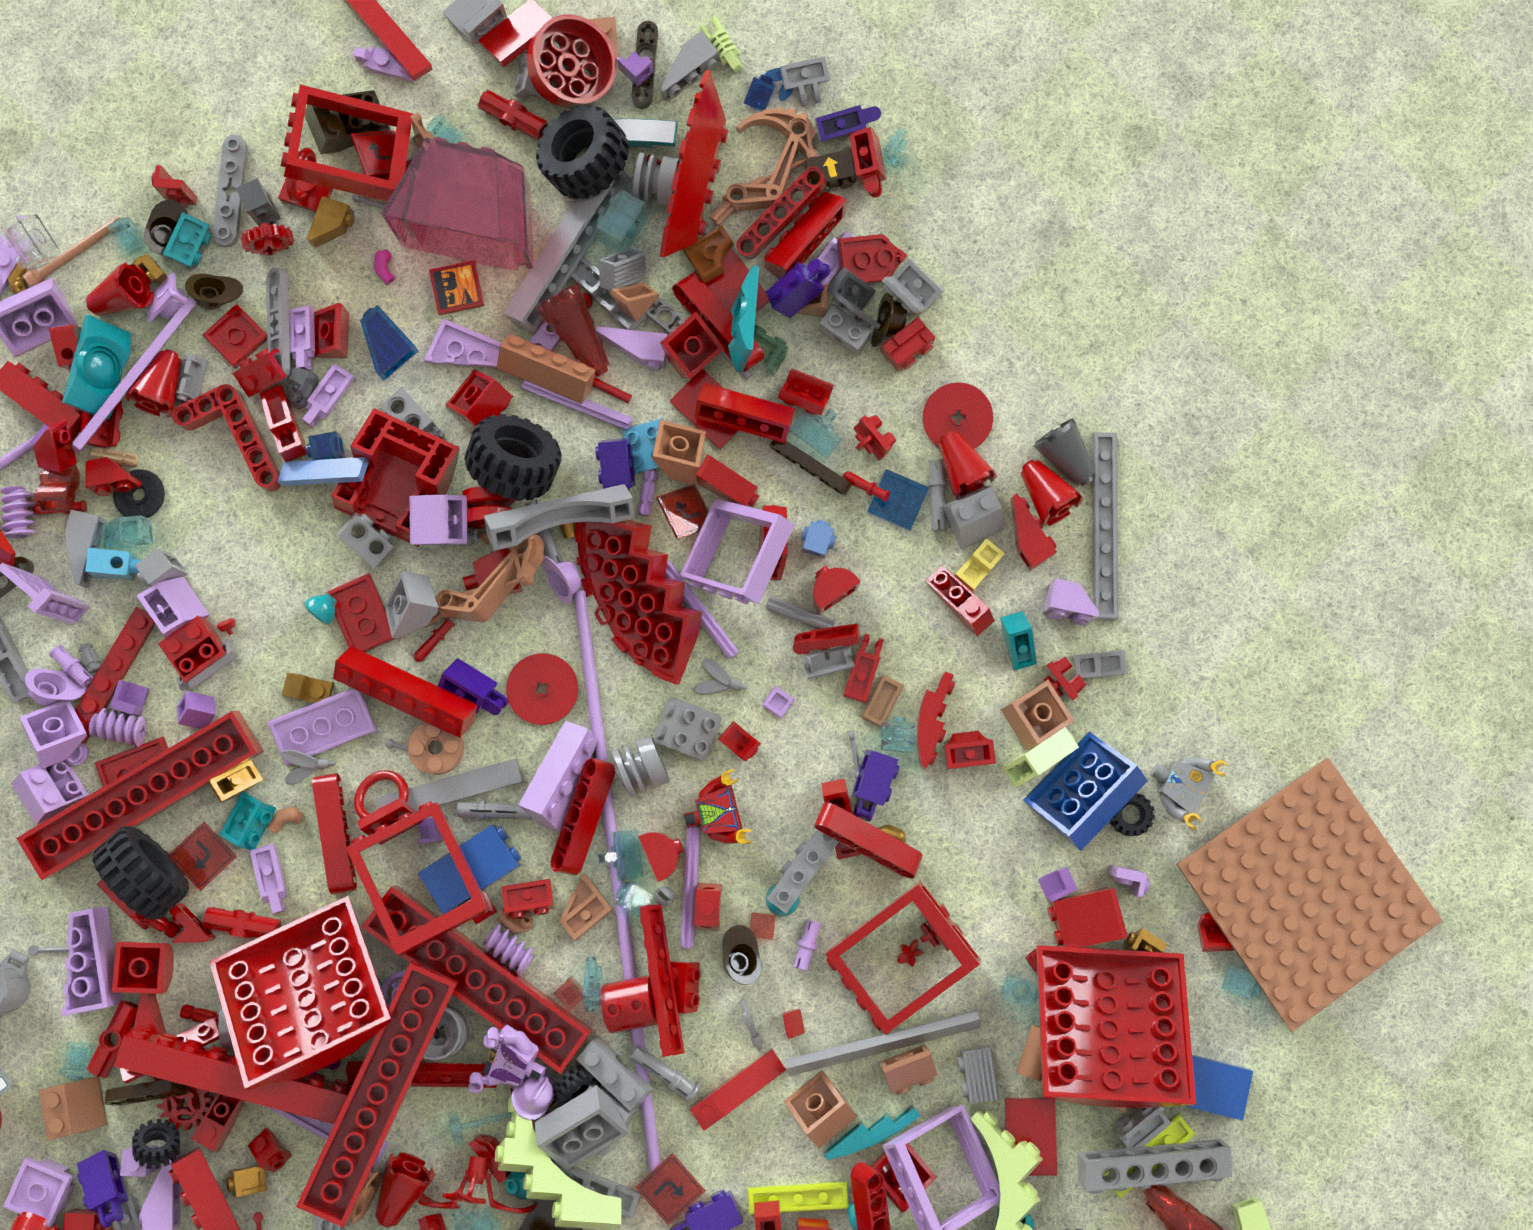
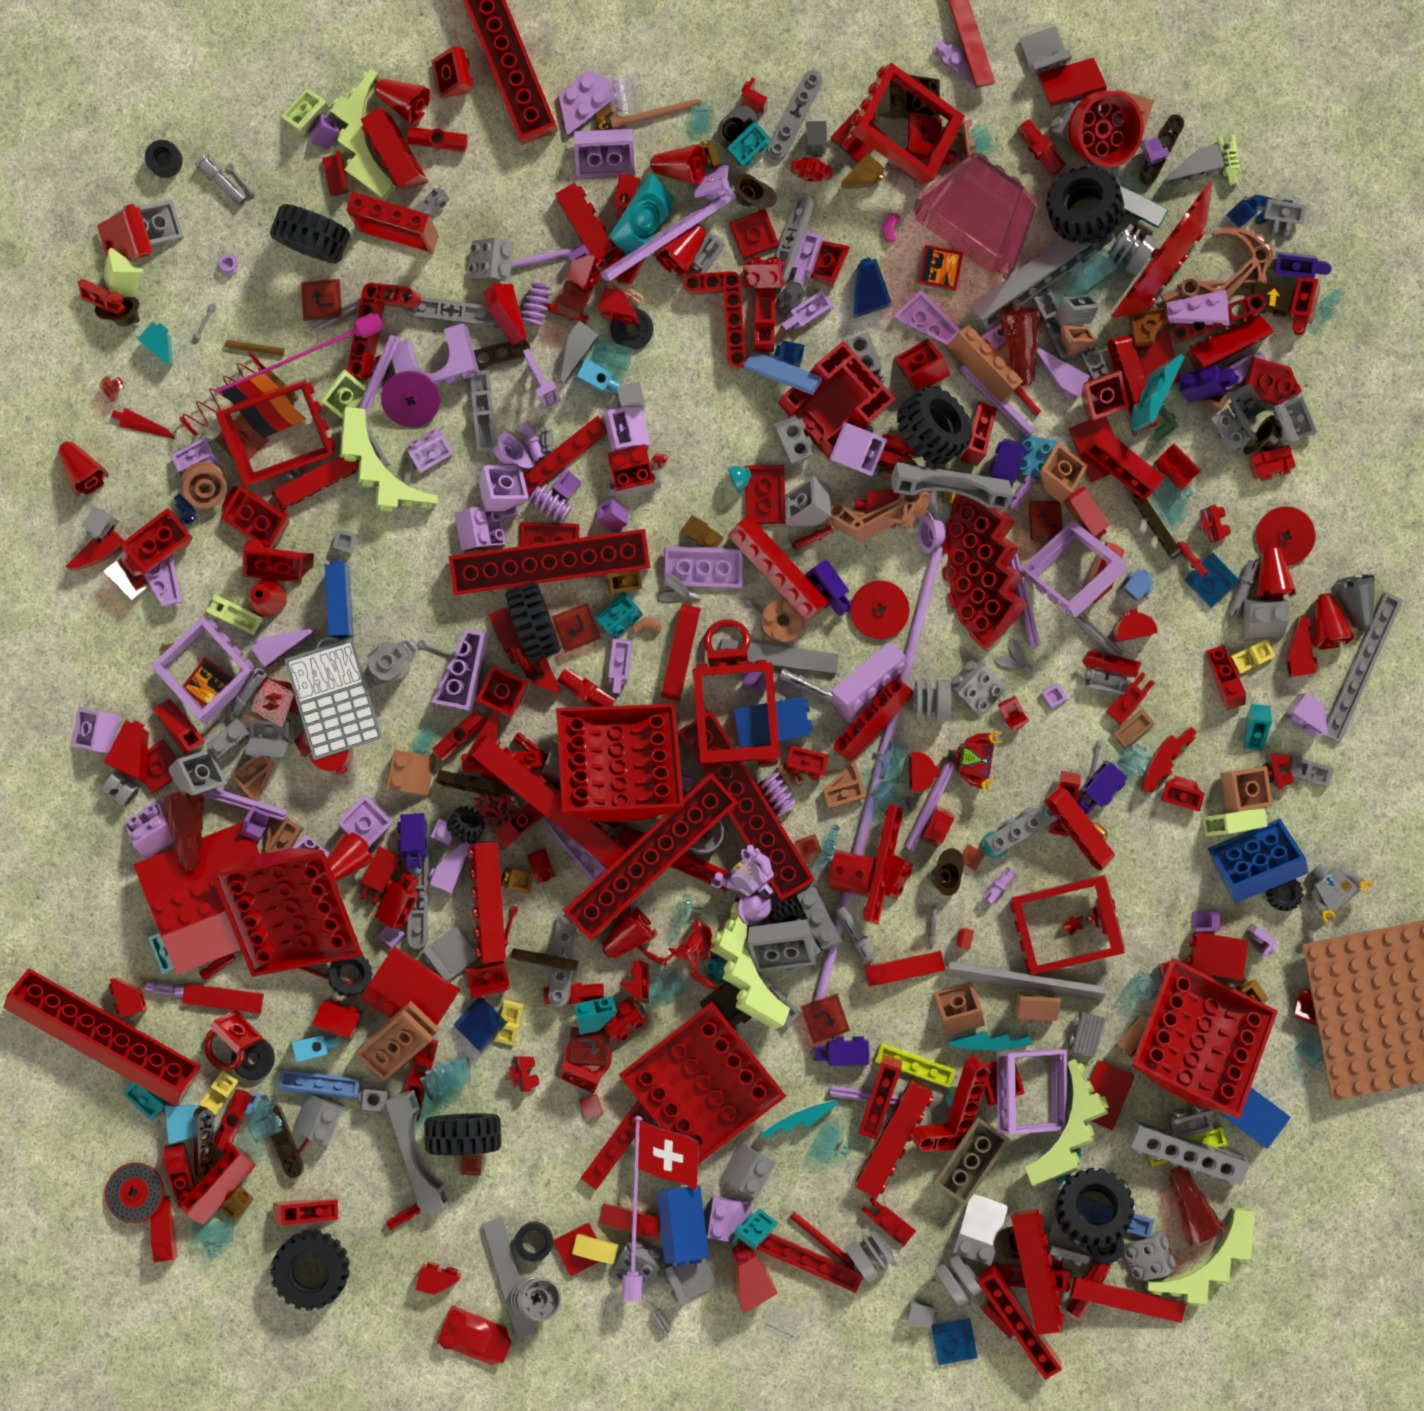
camera: 20 degrees right, 5 degrees up
(572, 448) = (981, 430): none -> red slope
(758, 208) = (1201, 308): none -> lavender wing

